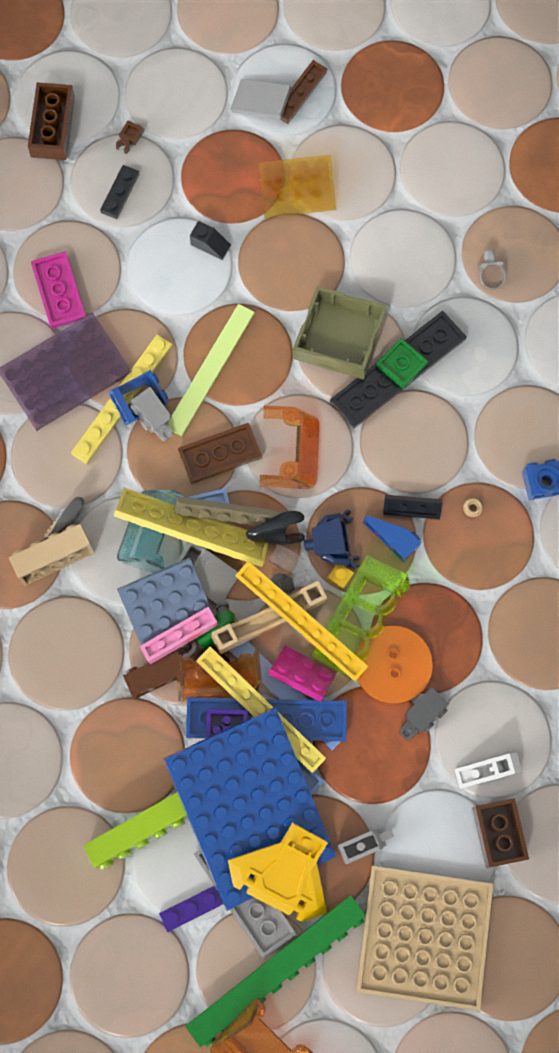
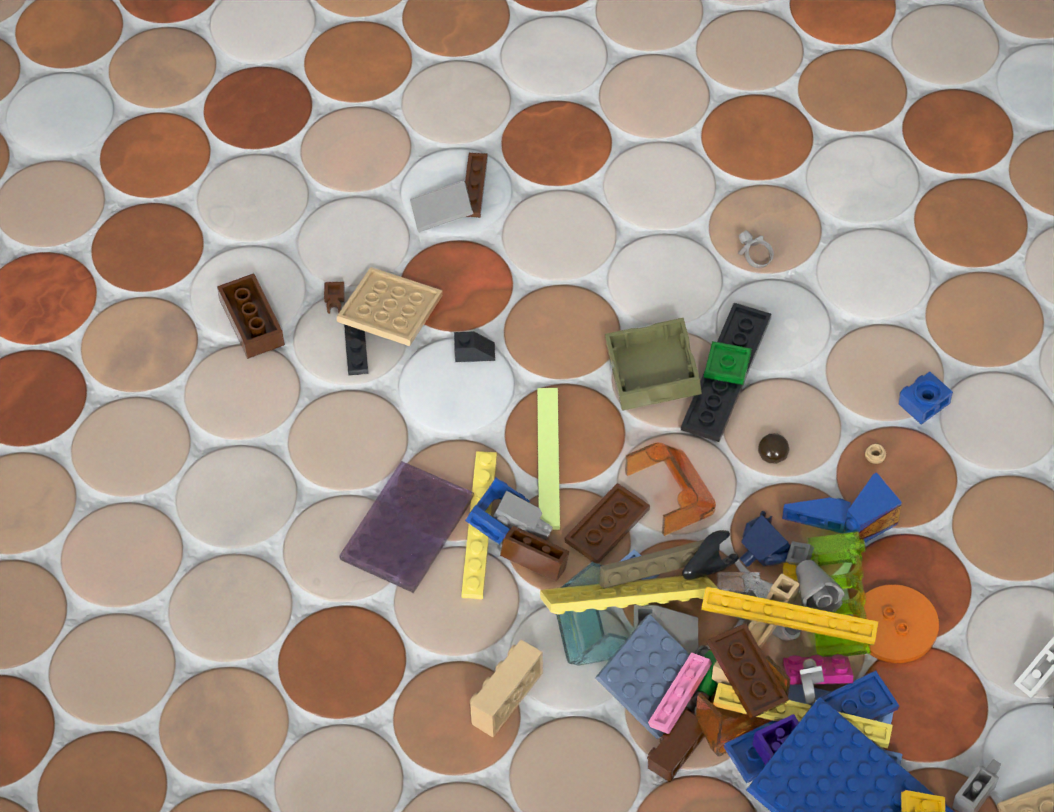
camera: 25 degrees left, 20 degrees down
(58, 290) = (353, 459): dark pink plate -> none
(66, 517) = (497, 648): dark grey animal -> none
(144, 450) = (534, 553): none -> reddish brown brick
(164, 169) = (389, 306): none -> tan plate
(233, 653) = (747, 671): none -> reddish brown plate
(280, 684) = (810, 675): none -> light grey piece
(297, 186) = (525, 263): clear yellow slope -> none
(340, 607) = (818, 588): none -> light grey cone
(349, 567) = (799, 552): none -> dark grey plate
(393, 458) = (773, 448): none -> dark brown hair
(412, 507) = (820, 479): black plate -> none
(423, 713) = (952, 648): dark grey hinge -> none
(432, 560) = (873, 510): none -> blue slope

